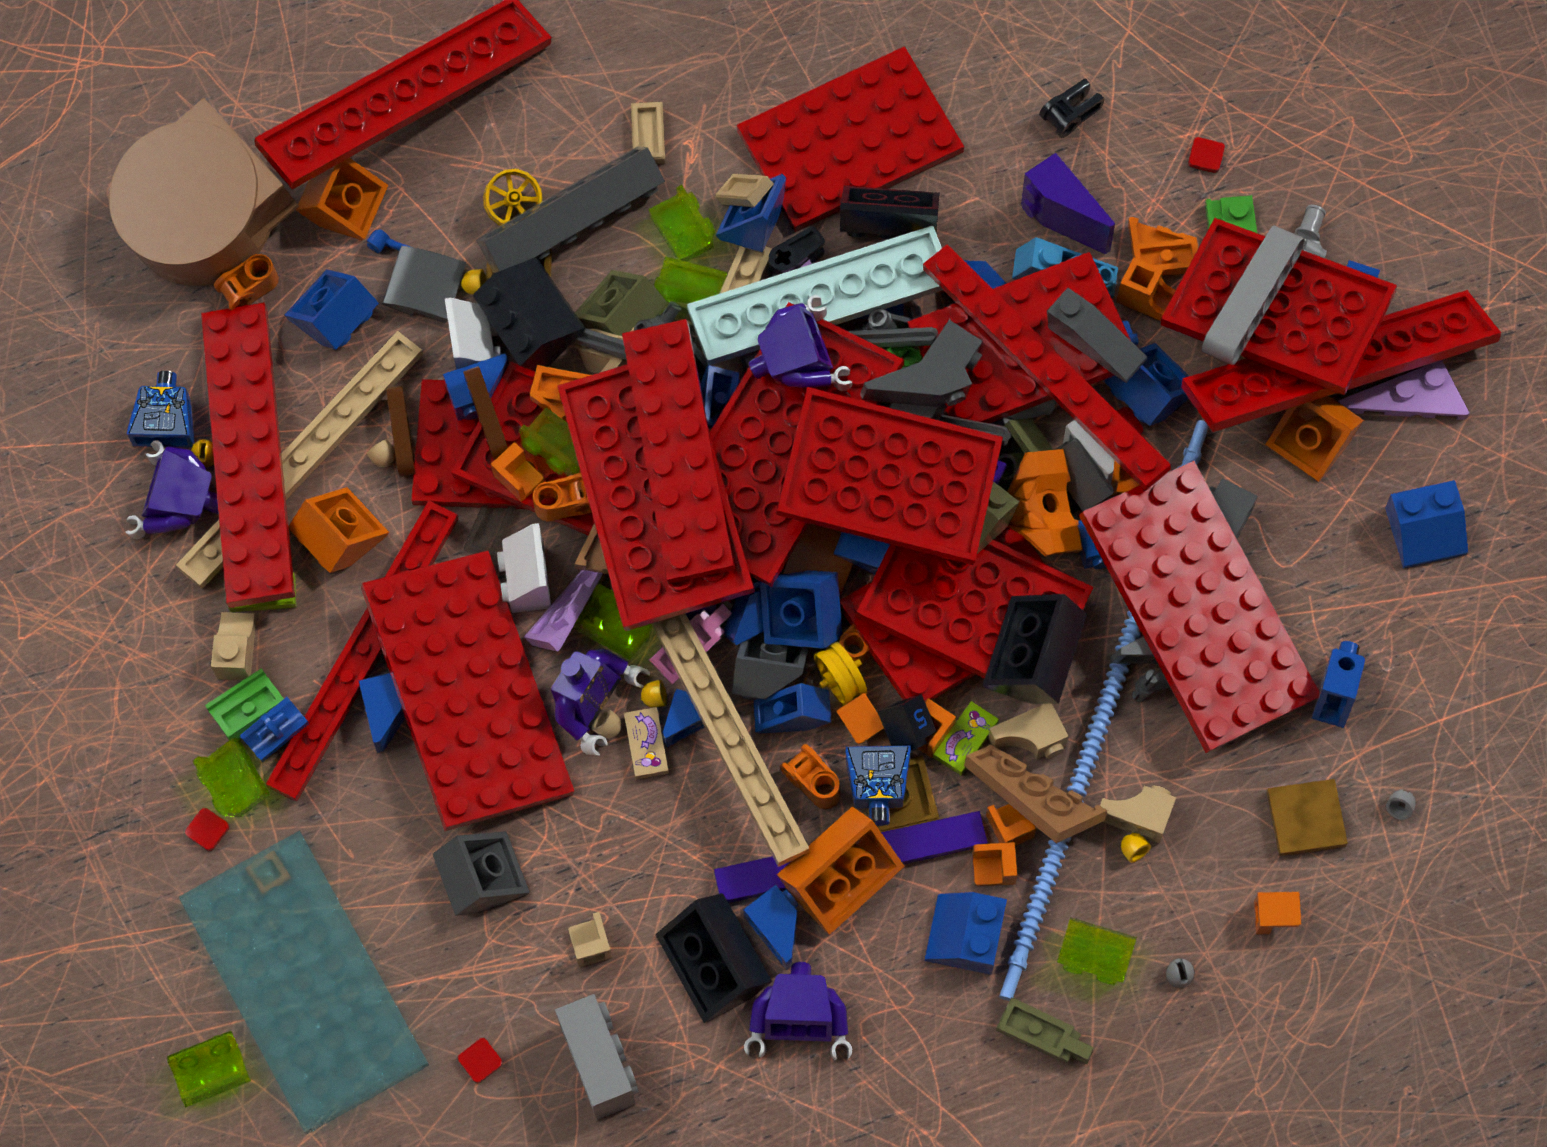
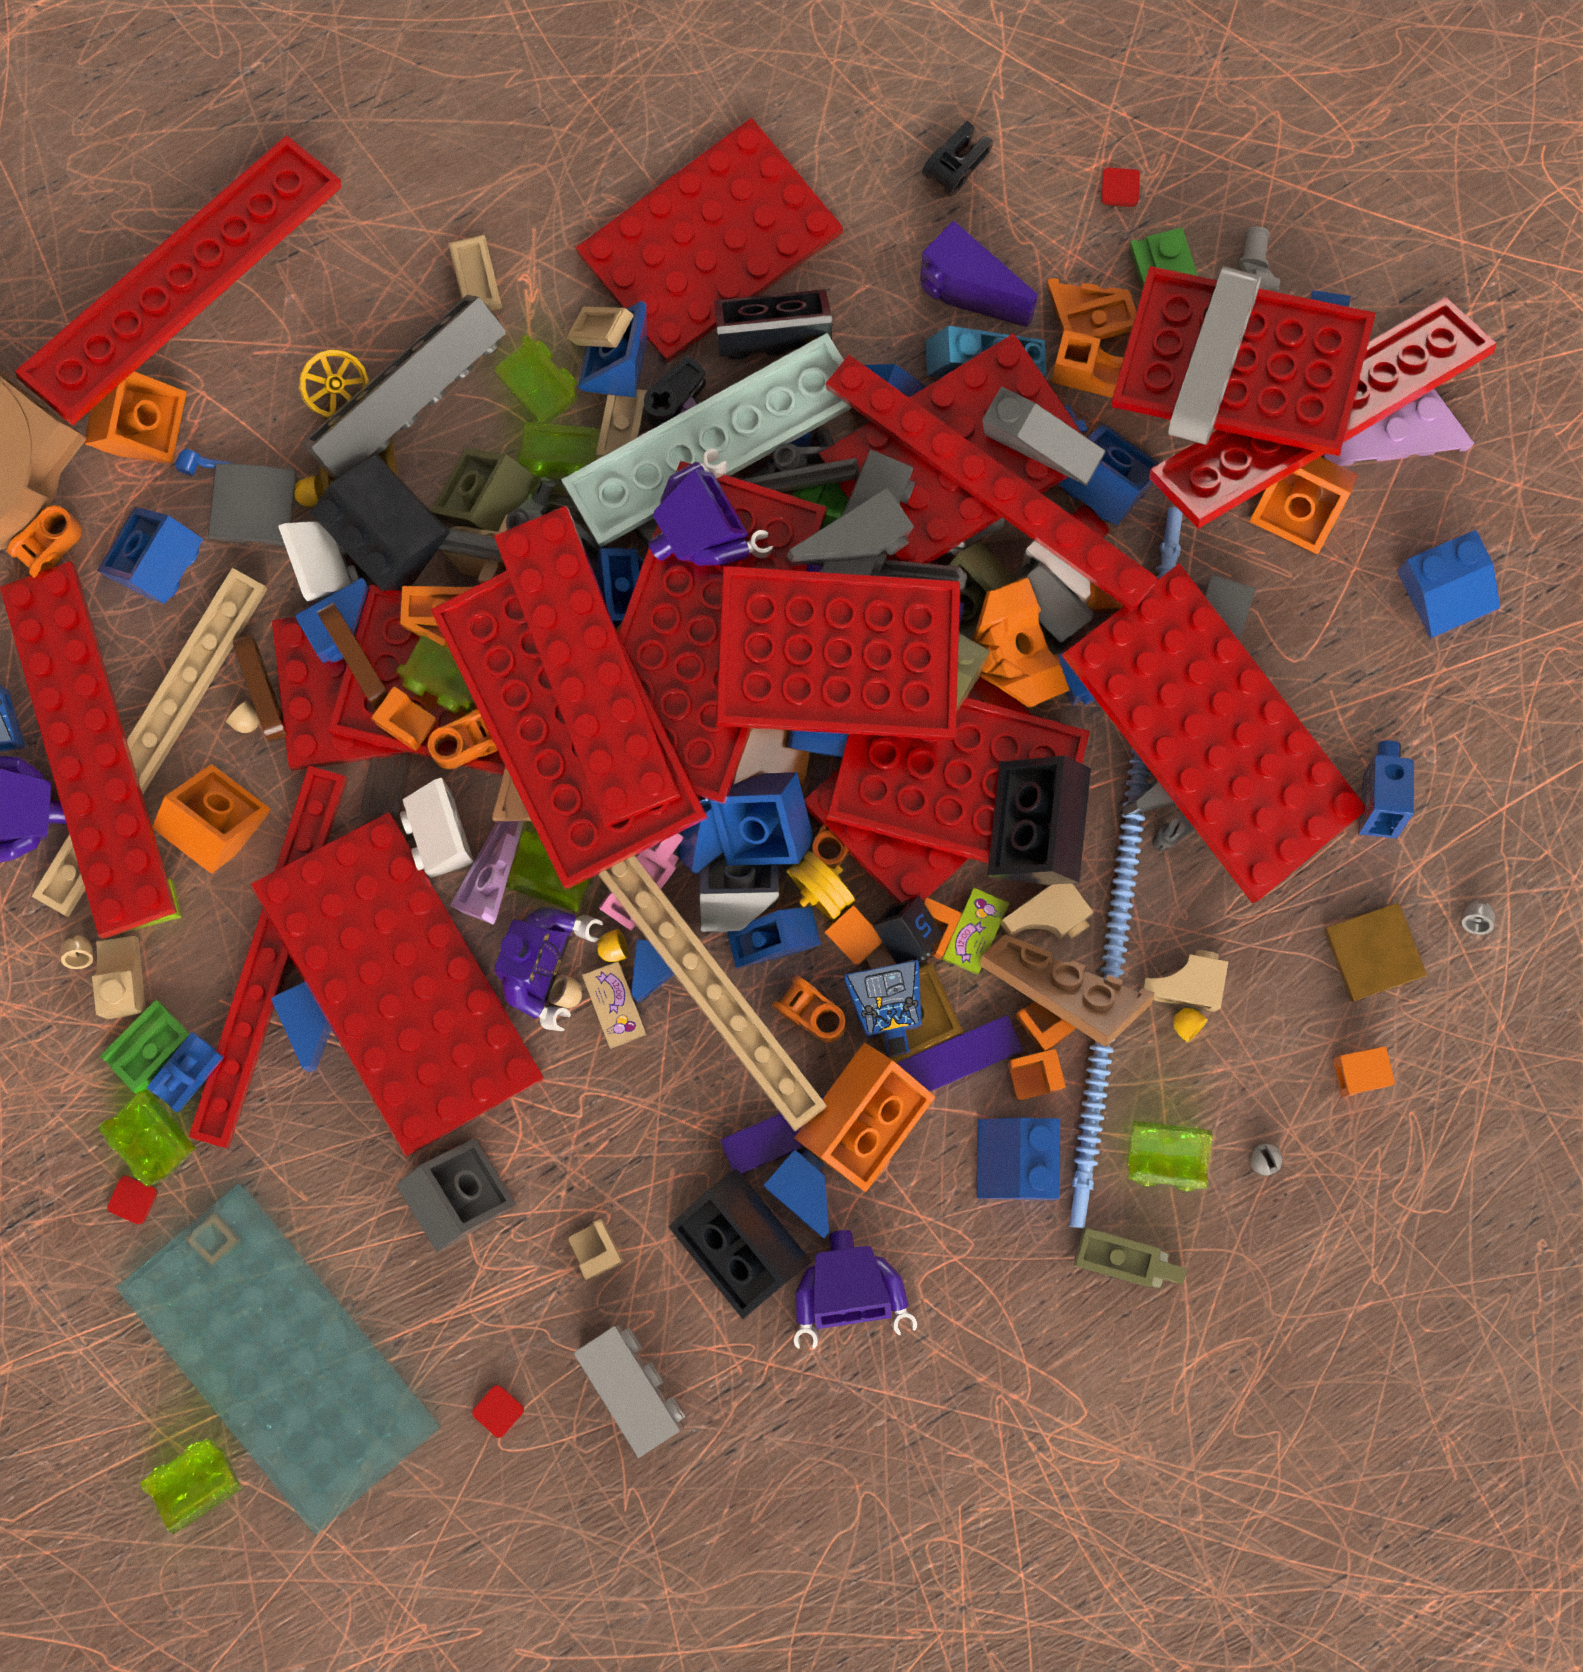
camera: 10 degrees left, 10 degrees up
(197, 618) = (77, 952): none -> tan hinge
(209, 457) = (27, 754): yellow hinge -> none

